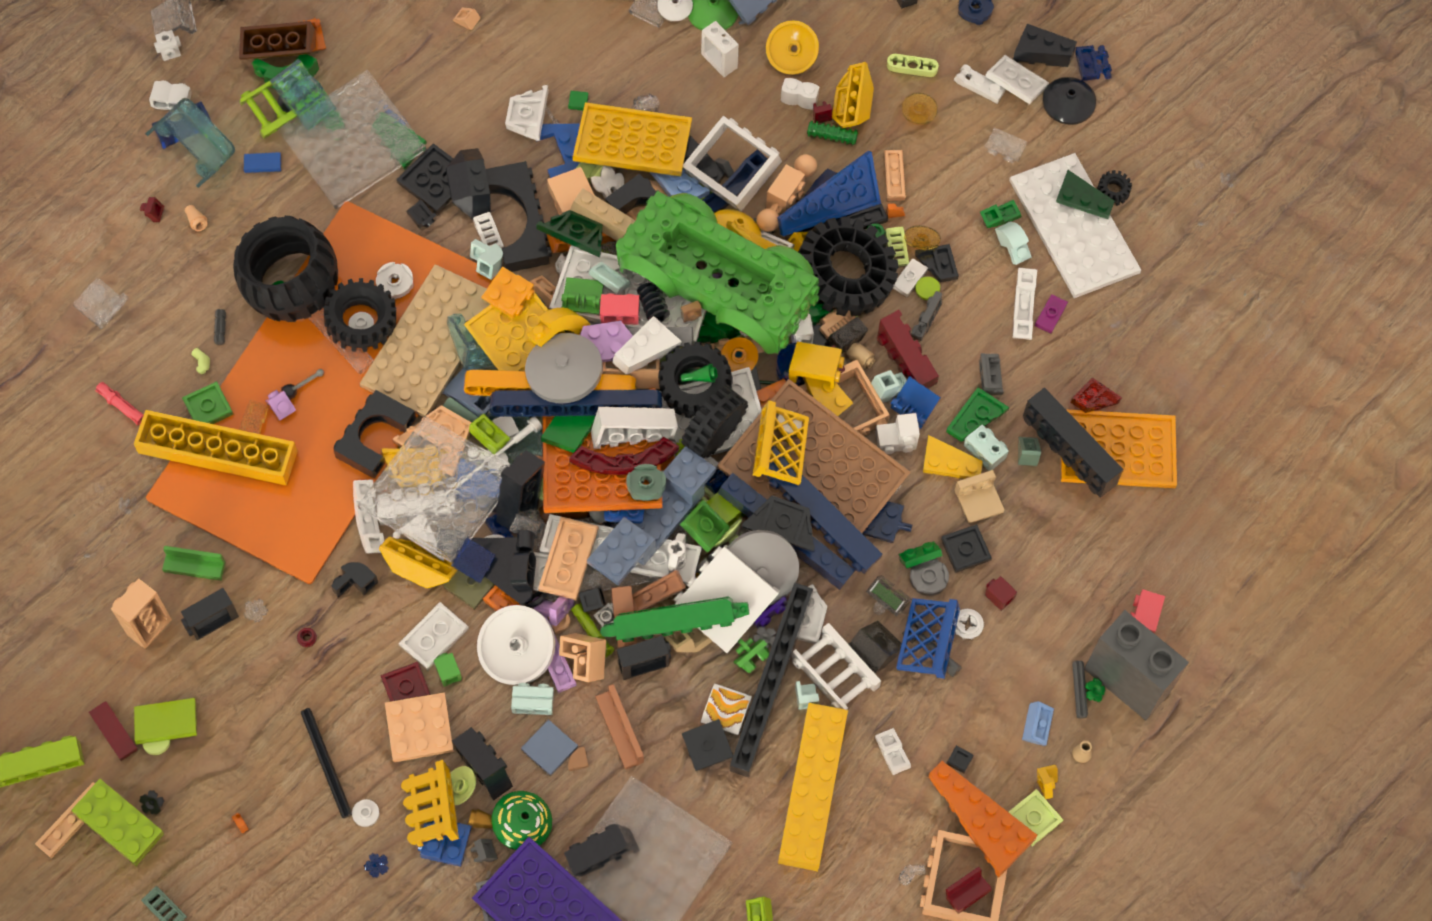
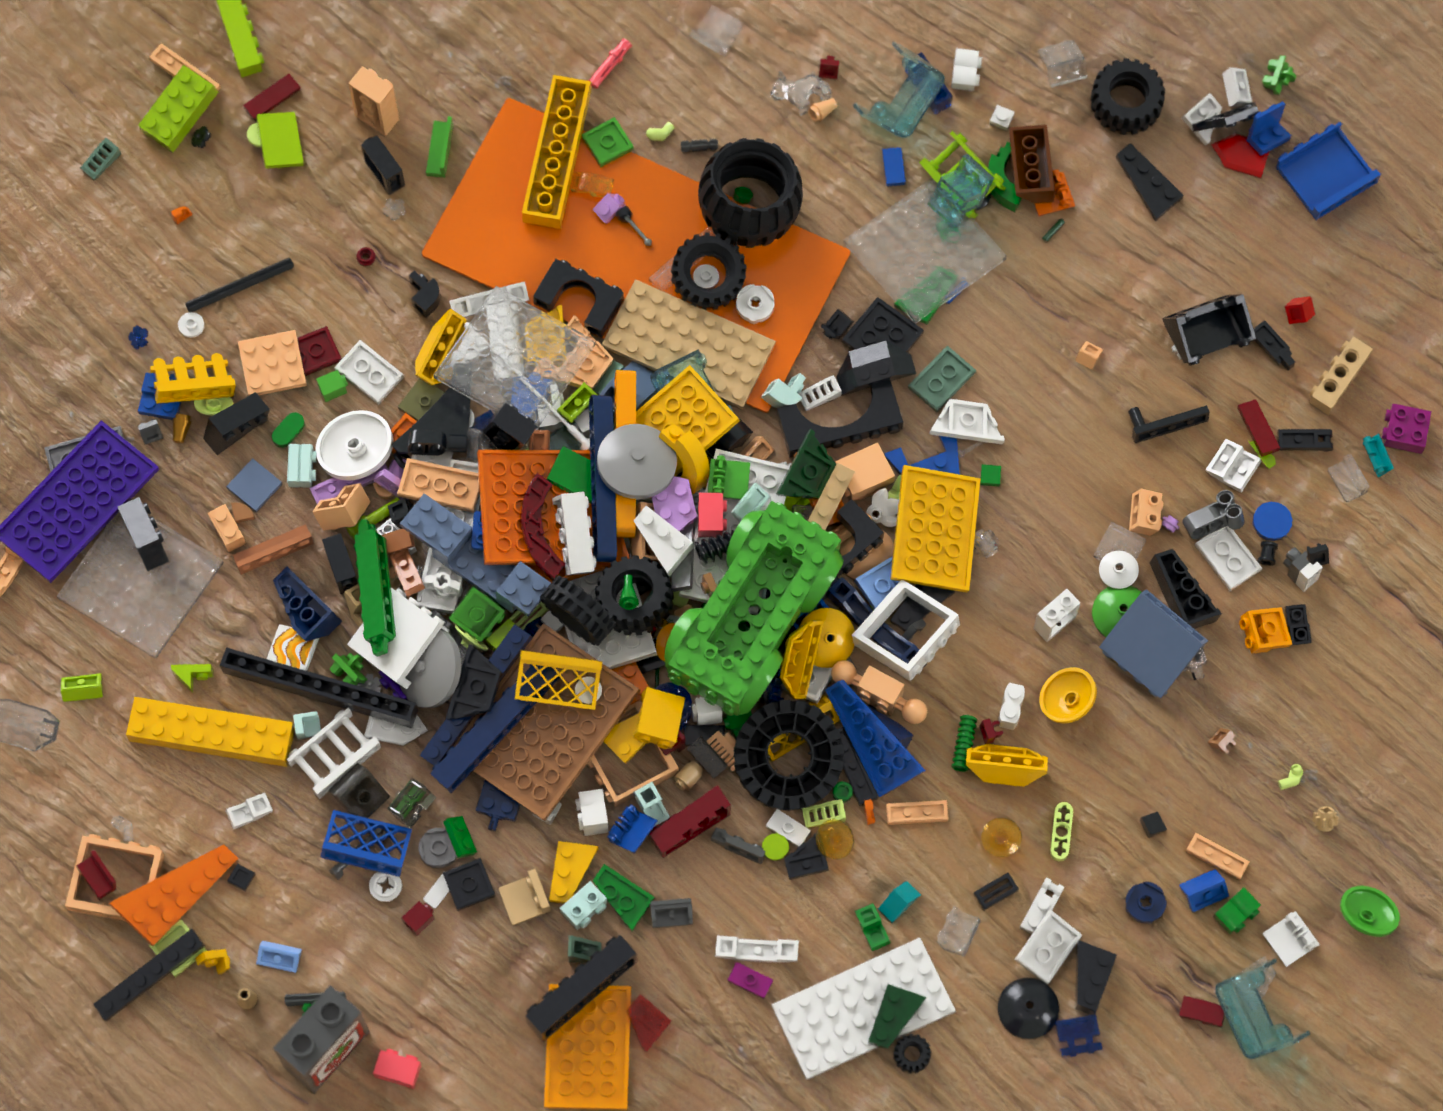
camera: 90 degrees right, 5 degrees up
(167, 45) = (1027, 59): white brick -> none
(175, 235) = (798, 91): none -> clear animal
(222, 72) = (1001, 117): none -> white plate
(340, 37) = (1053, 230): none -> dark green piece
(473, 560) = (438, 397): clear blue piece -> none
(480, 132) = (942, 378): none -> sand green tile
(491, 714) = (288, 429): none -> green tile
(509, 293) = (720, 402): light orange plate -> none
(512, 828) = (192, 469): green dish -> none
(597, 771) = (226, 528): none -> light nougat brick
(646, 492) = (515, 537): sand green plate -> none
(688, 693) = (306, 611): none -> dark blue wedge
(707, 745) = (254, 630): black plate -> none
(752, 810) = (187, 672): none -> lime slope
(960, 121) = (987, 905): none -> black tile
(971, 579) = (437, 892): none -> white sticker
(977, 191) = (899, 901): none -> teal slope
(1015, 239) = (834, 937): light aqua brick -> none
(1063, 843) = (149, 974): none -> black plate

